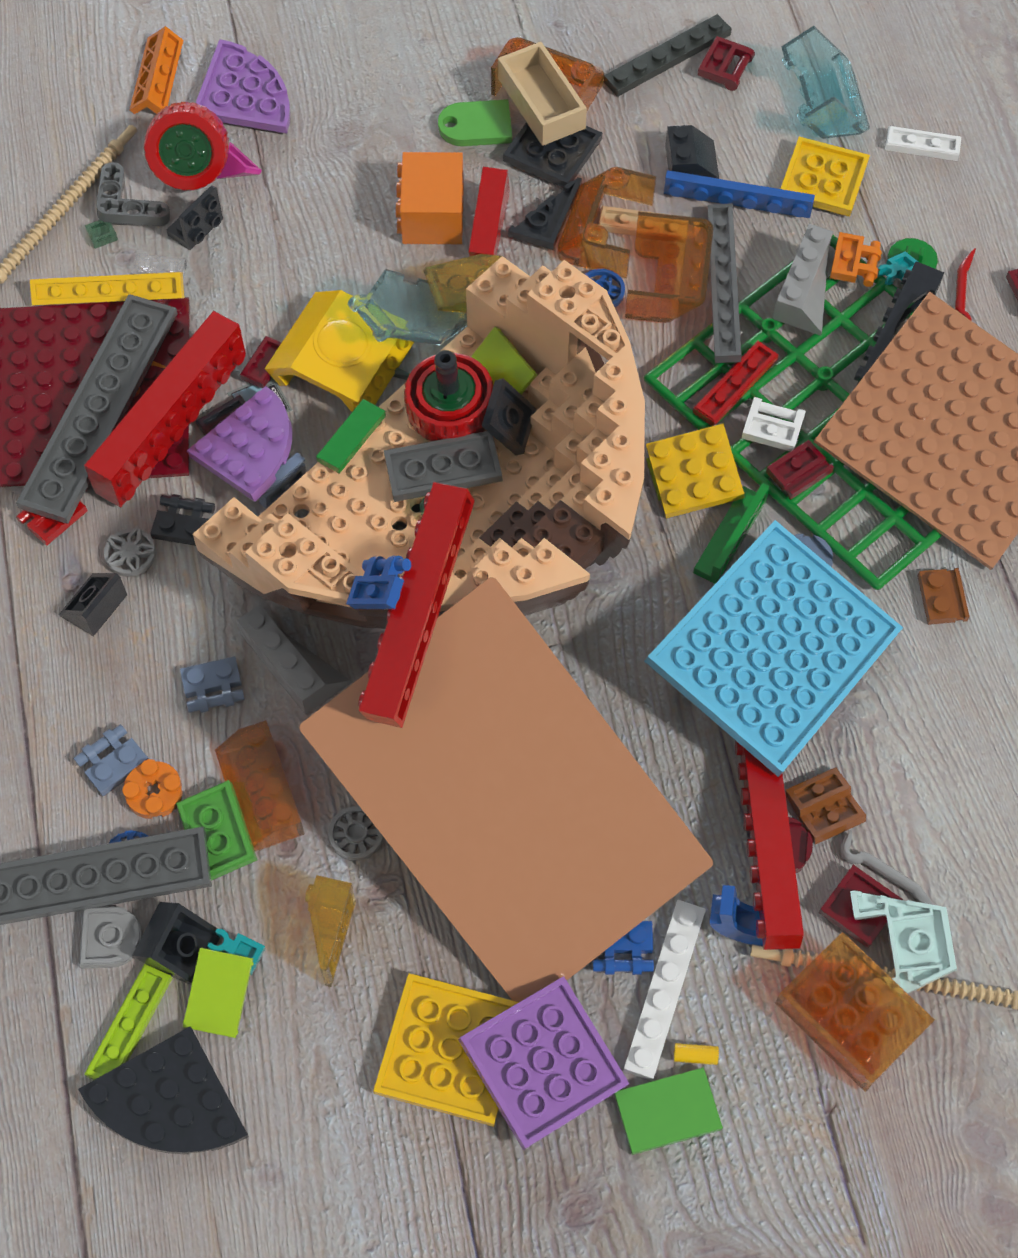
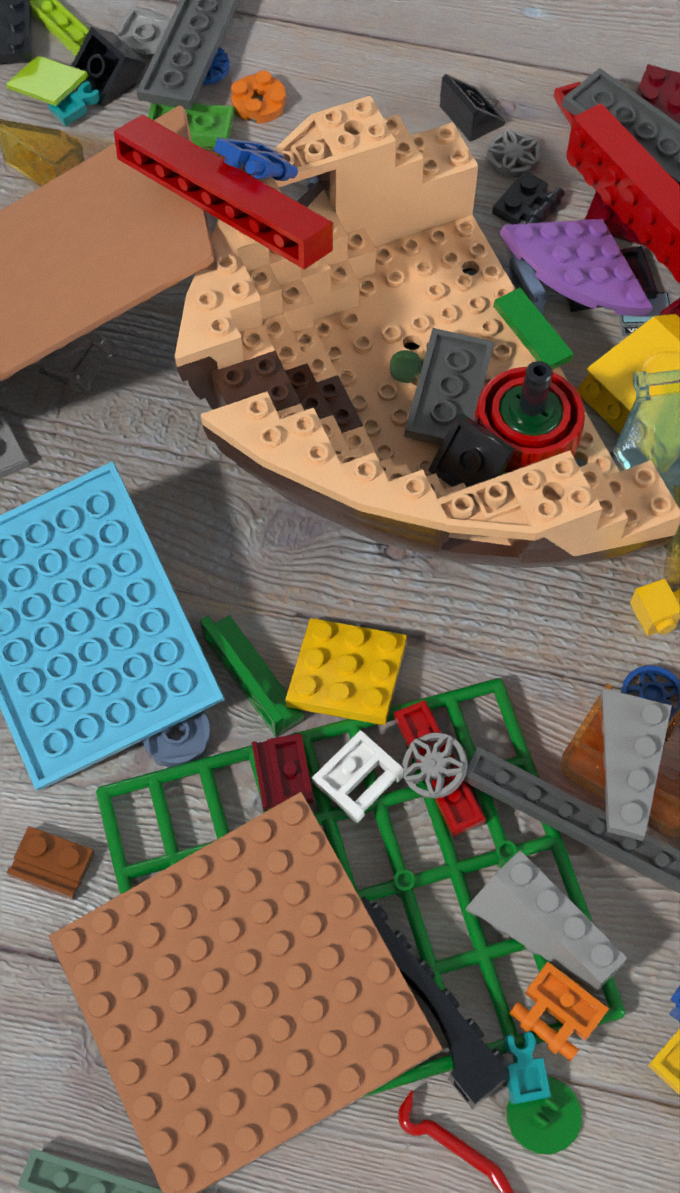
camera: 115 degrees right, 0 degrees up
(116, 766) = (296, 80): sand blue plate -> none
(665, 261) = (632, 755): none -> light grey wing
(742, 376) = (434, 765): none -> light grey wheel

